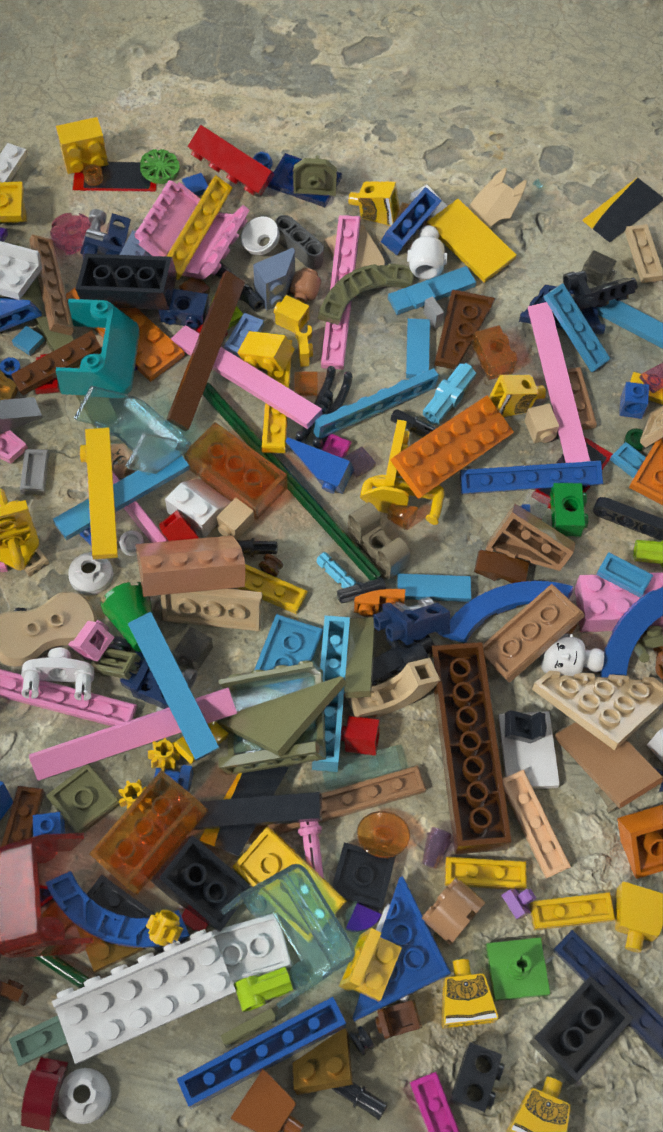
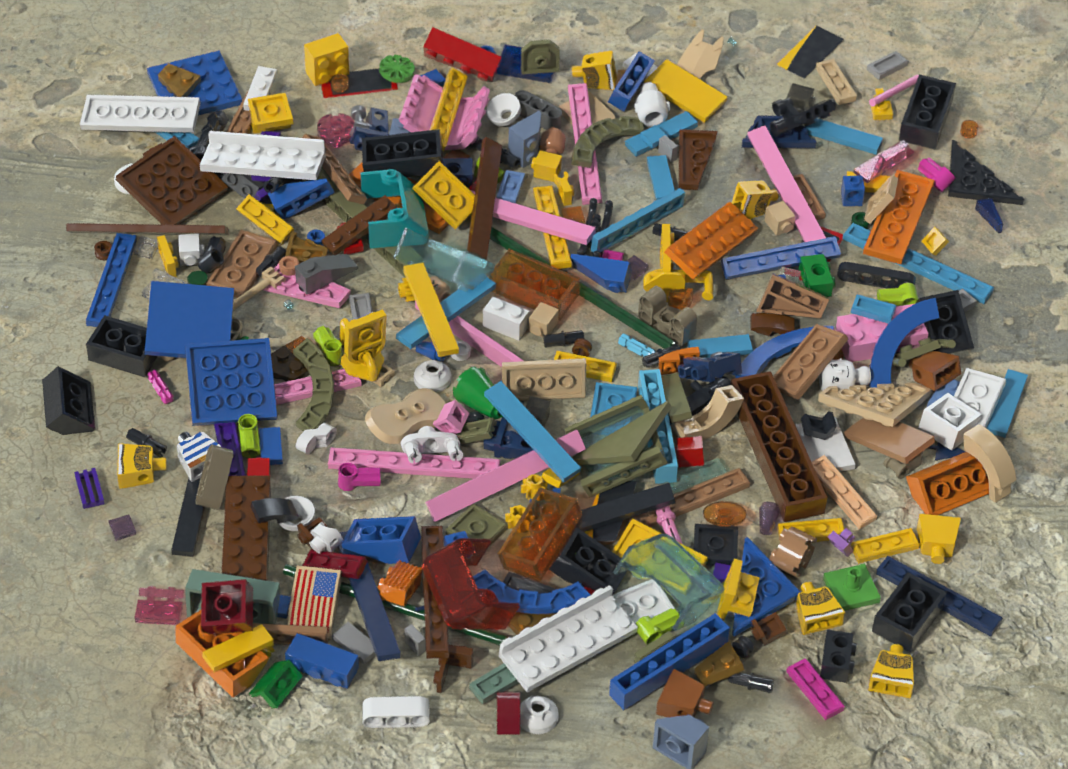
camera: 10 degrees left, 15 degrees down
(28, 340) = (324, 216): dark azure tile -> none
(162, 338) = (446, 195): none -> yellow tile
(164, 927) = (573, 587): yellow gear -> none
(177, 528) = (501, 332): red brick -> none
(190, 565) = (523, 348): nougat slope -> none
(266, 351) = (535, 193): yellow brick -> none
(449, 393) = (697, 206): medium azure piece -> none
(486, 344) = (726, 171): clear orange brick -> none
(576, 327) = (792, 142): dark azure tile -> none

